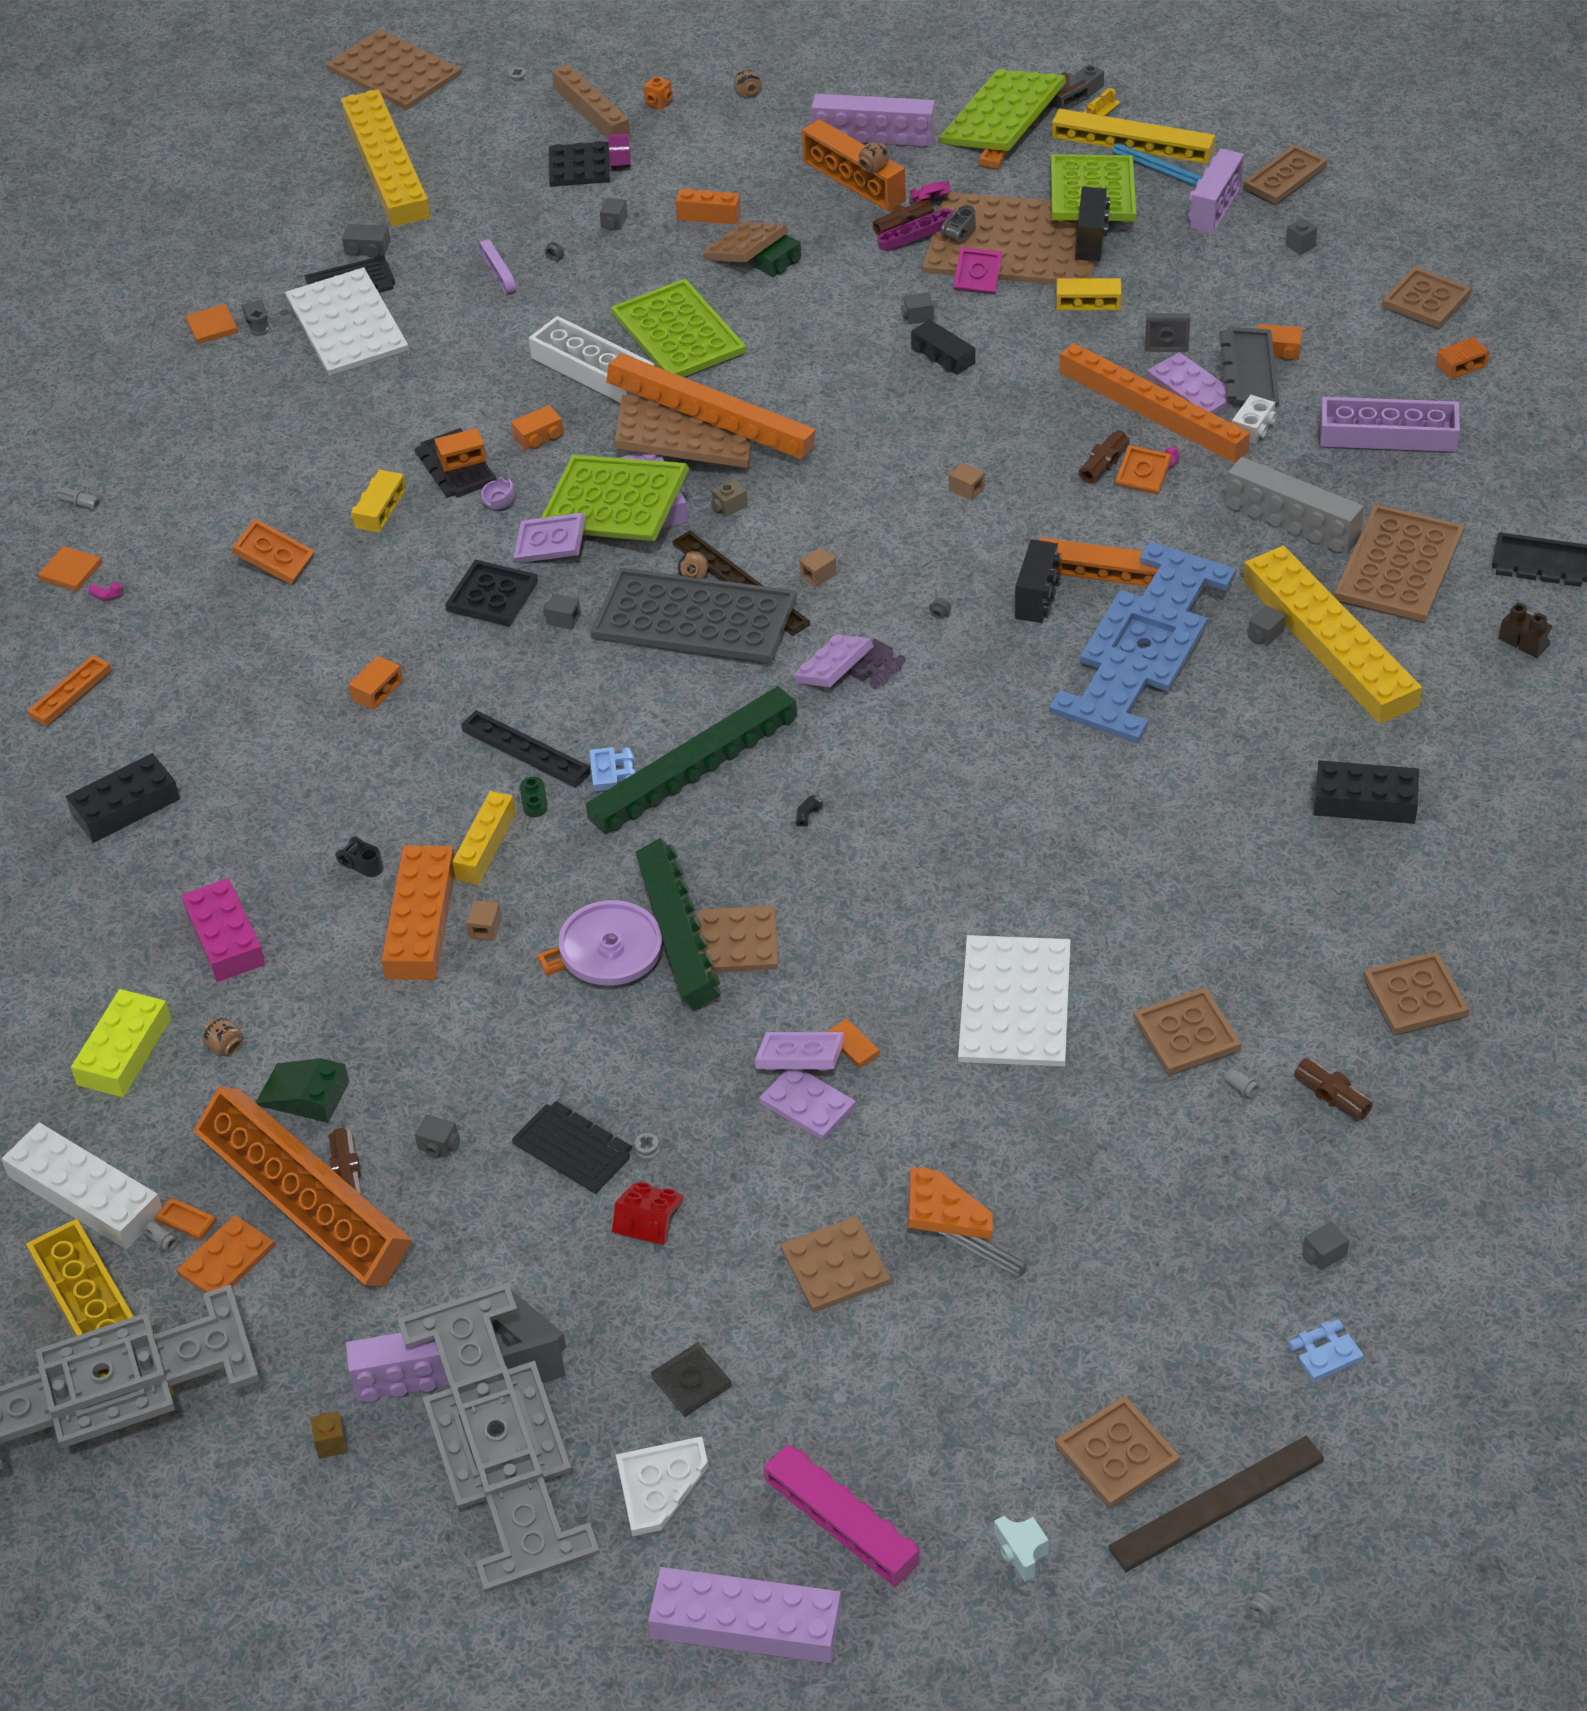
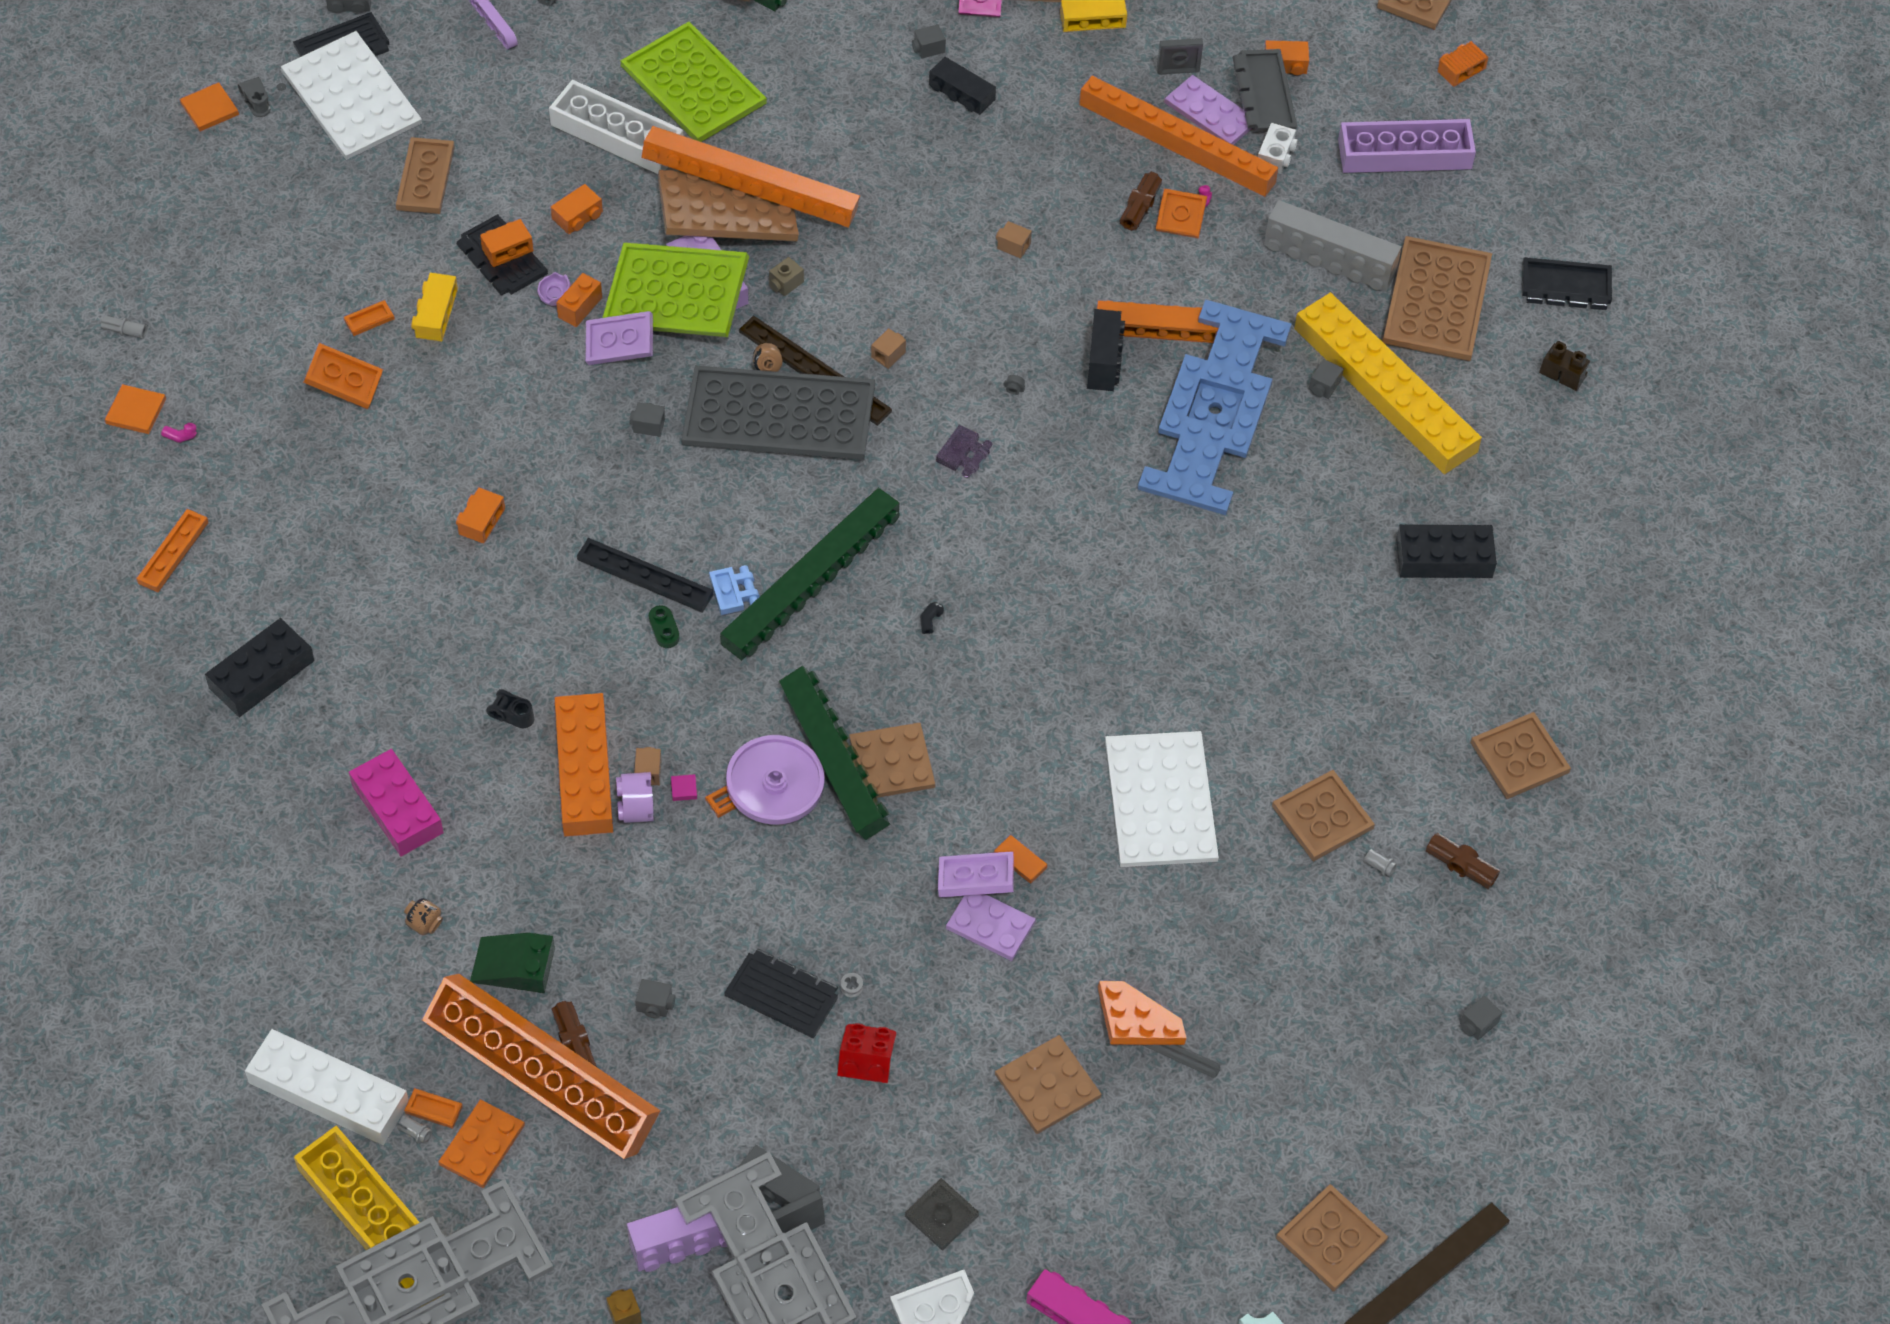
camera: 15 degrees left, 10 degrees up
(121, 1043) = (326, 933): neon yellow brick -> none
(313, 507) = (369, 318): none -> orange tile
(399, 391) = (425, 175): none -> medium nougat plate
(462, 945) = (636, 797): none -> lavender brick
(484, 838) = (628, 678): yellow brick -> none
(491, 592) = (572, 402): black plate -> none
(517, 944) = (684, 787): none -> dark pink tile
(519, 503) = (579, 299): none -> orange brick
(833, 660) = (924, 452): lavender plate -> none
(1328, 1358) = (1500, 1124): light blue plate -> none

